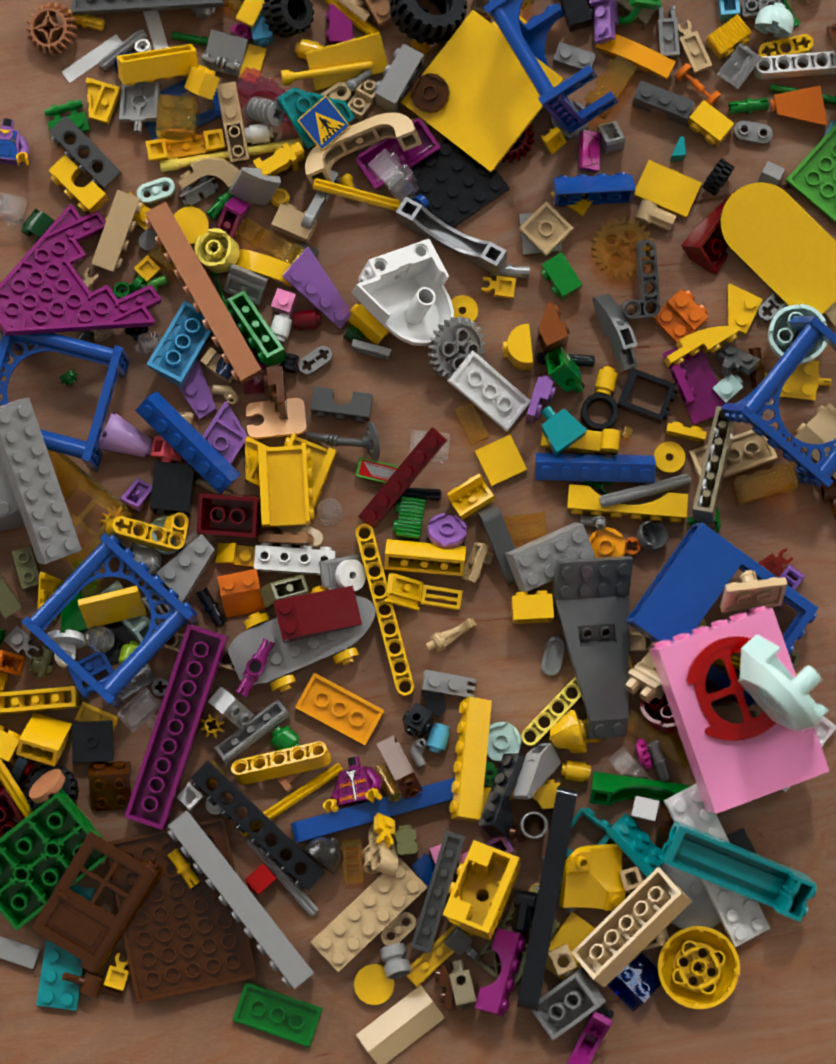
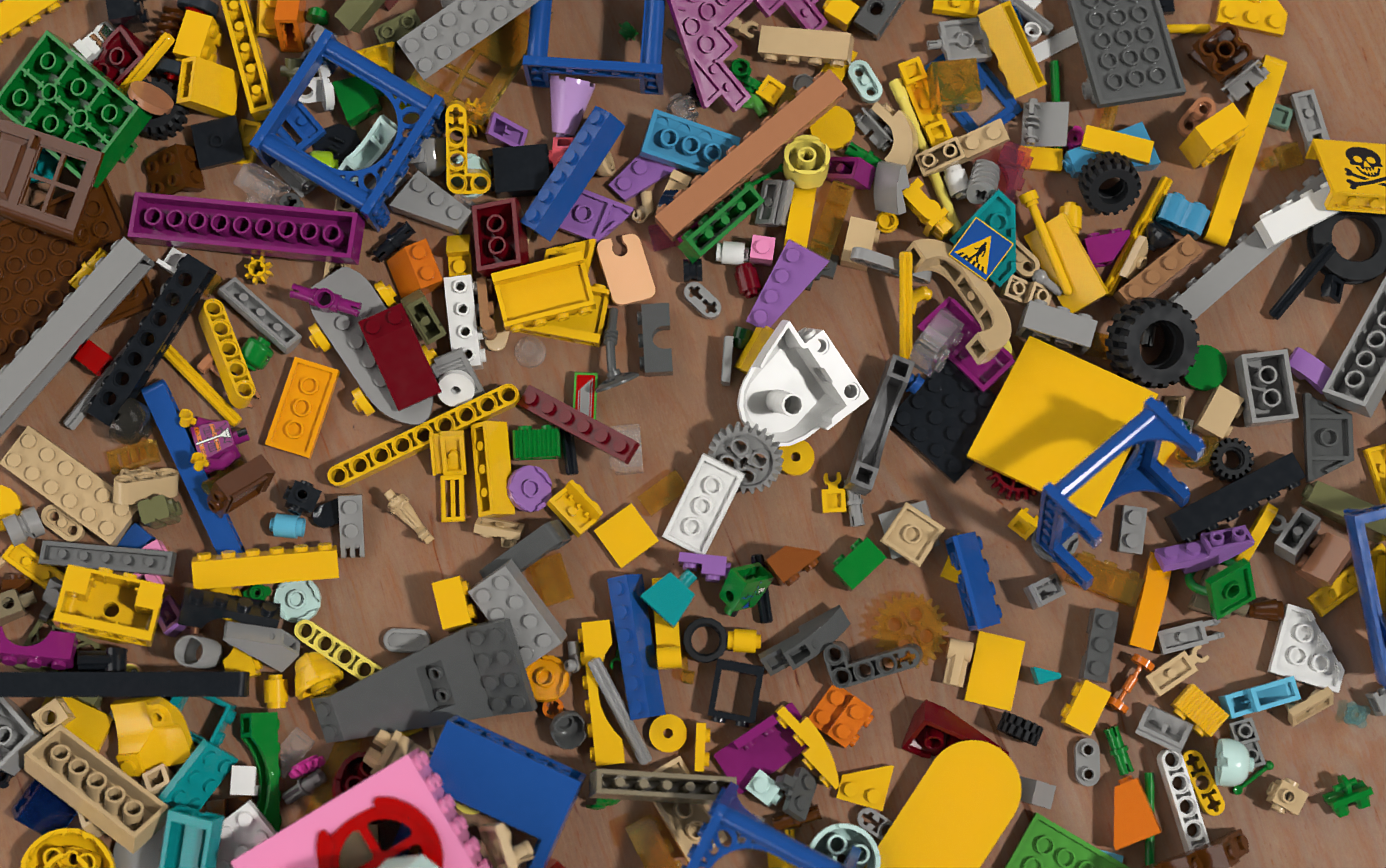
camera: 75 degrees right, 0 degrees up
(99, 639) = (331, 124): clear head -> none
(112, 607) = (365, 126): yellow tile -> none
(202, 81) = (1000, 102): yellow brick -> none
(231, 708) = (277, 284): light grey brick -> none
(276, 388) = (660, 261): reddish brown plate -> none
(385, 828) = (169, 483): yellow plate -> none
(417, 750) = (269, 504): light grey arm -> none
(430, 93) = (1046, 366): reddish brown tile -> none
(519, 348) = (761, 529): yellow brick -> none
(589, 151) = (1020, 569): dark pink tile -> none

